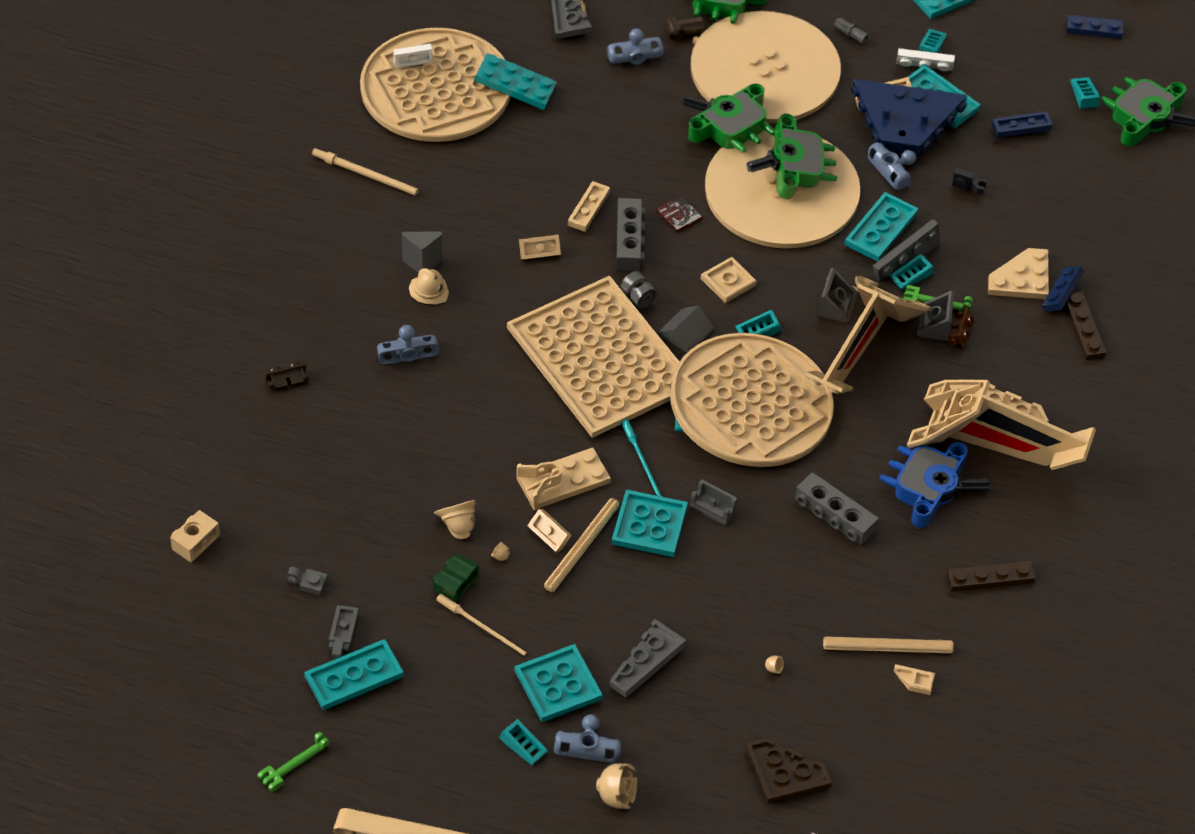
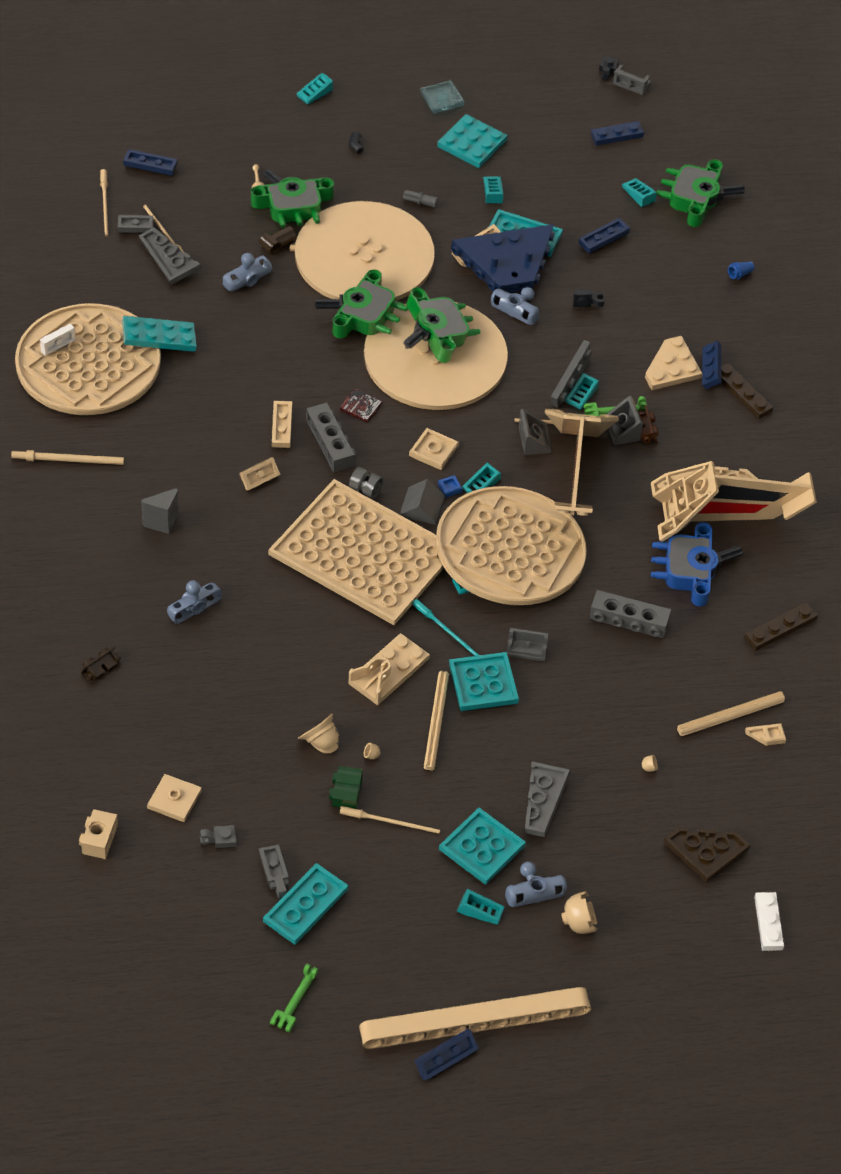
camera: 25 degrees left, 0 degrees up
(286, 528) = (174, 798): none -> tan plate
(429, 287) = (181, 542): tan piece -> none
(549, 530) = (403, 717): tan plate -> none
(724, 322) = (450, 486): none -> blue tile
(881, 226) = (536, 360): teal plate -> none
(919, 58) = (491, 205): white plate -> none
(1148, 202) = (740, 269): none -> blue cone

